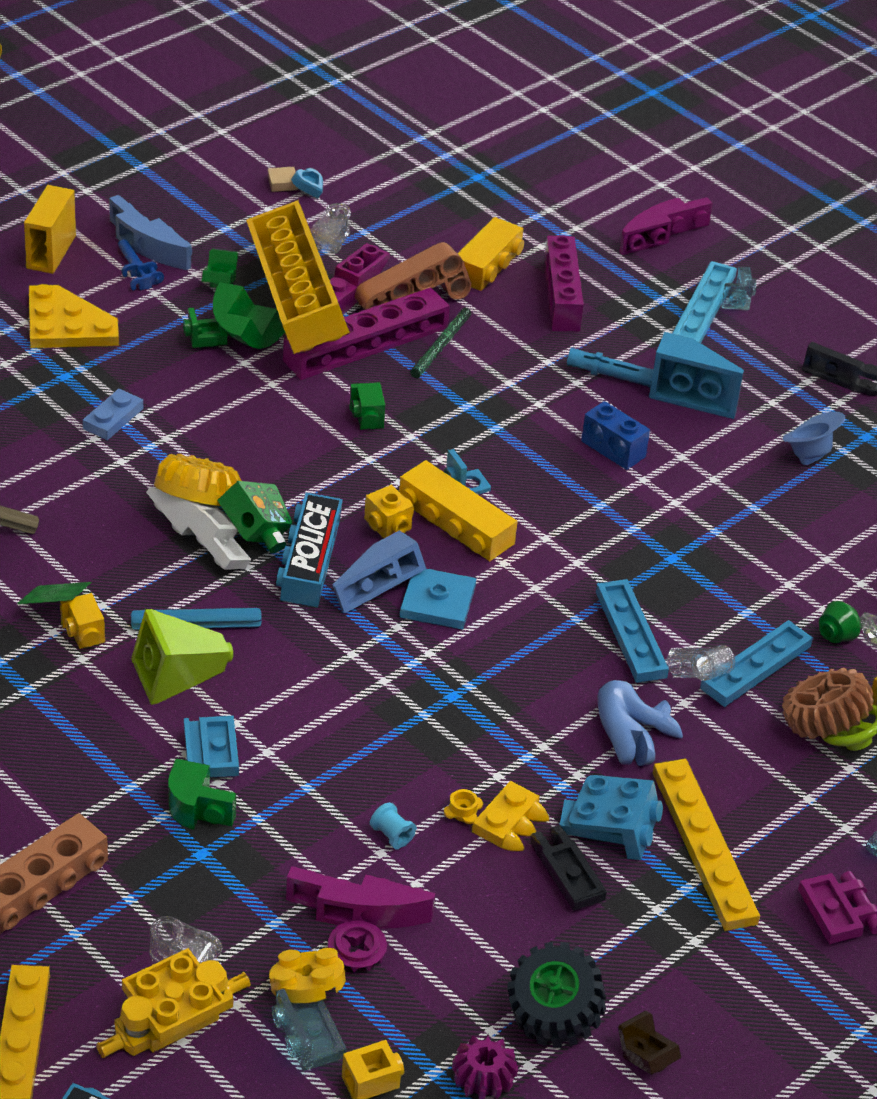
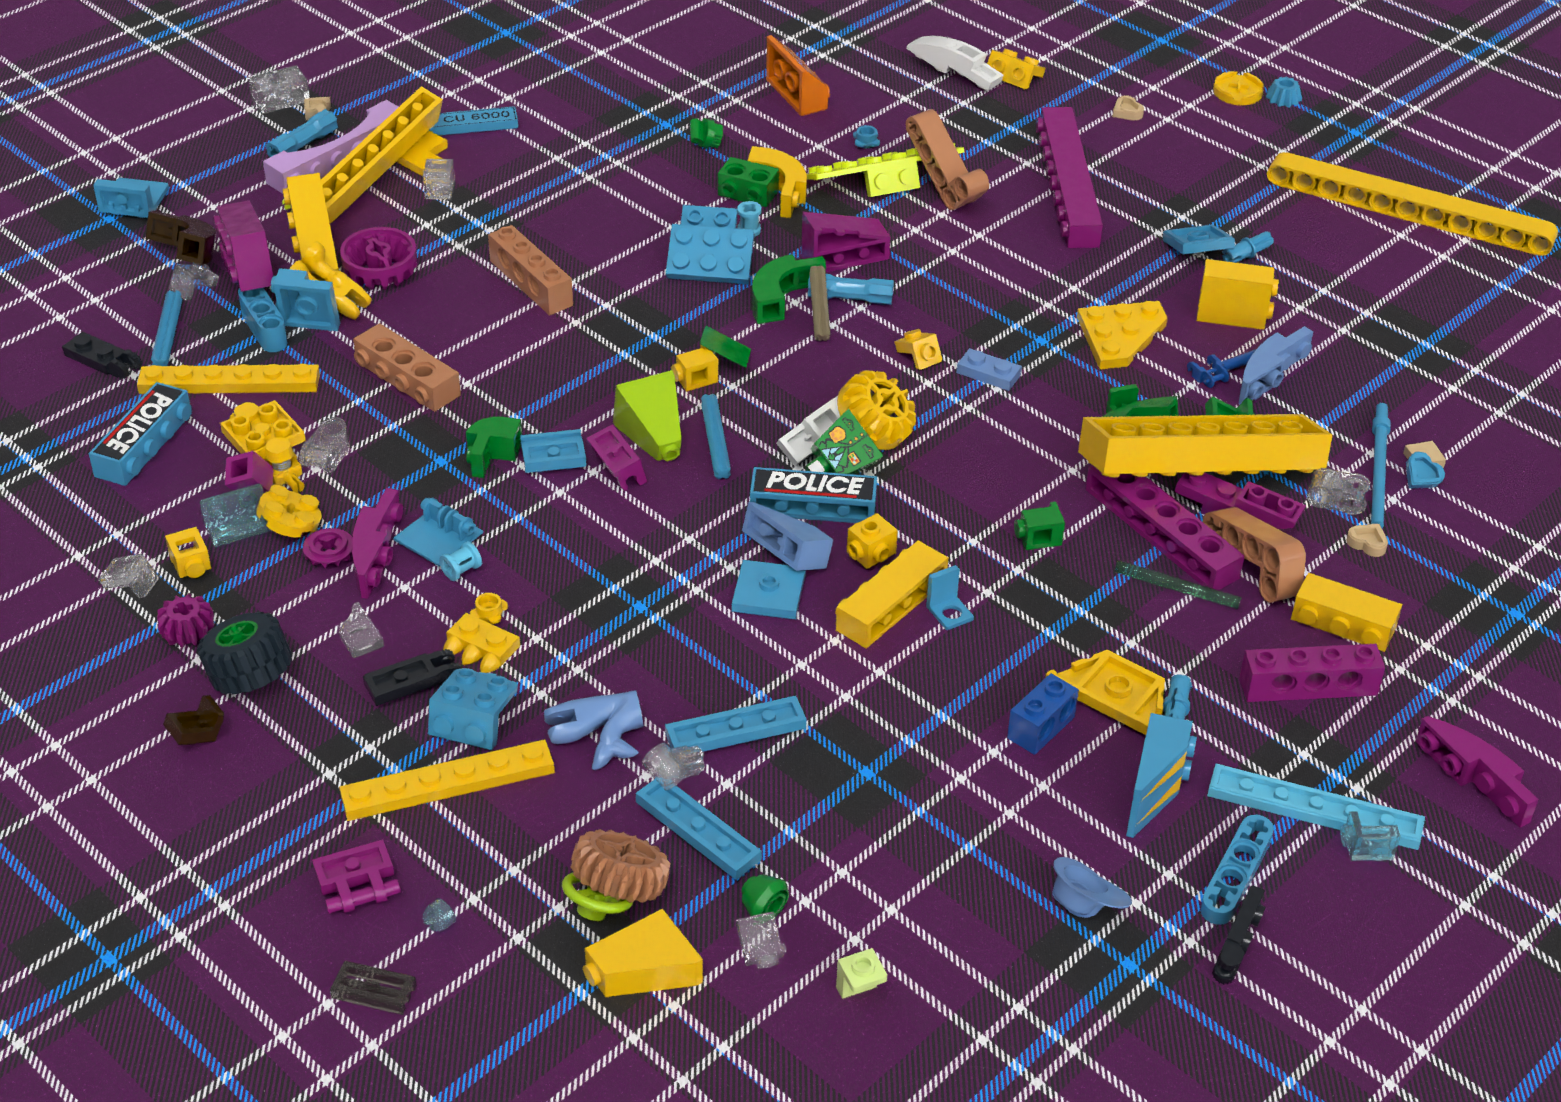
camera: 90 degrees right, 0 degrees up
(72, 453) = (922, 346): none -> yellow bracket
(235, 687) = (617, 456): none -> magenta hinge
(242, 193) = (1380, 428): none -> dark azure bar
(247, 1011) = (248, 470): none -> magenta brick
(341, 846) = (438, 531): none -> dark azure hinge
(388, 229) = (1368, 538): none -> tan tile
(492, 917) = (360, 633): none -> clear tile
(576, 391) = (1117, 688): none -> yellow wing
(799, 376) = (1234, 867): none -> dark azure beam

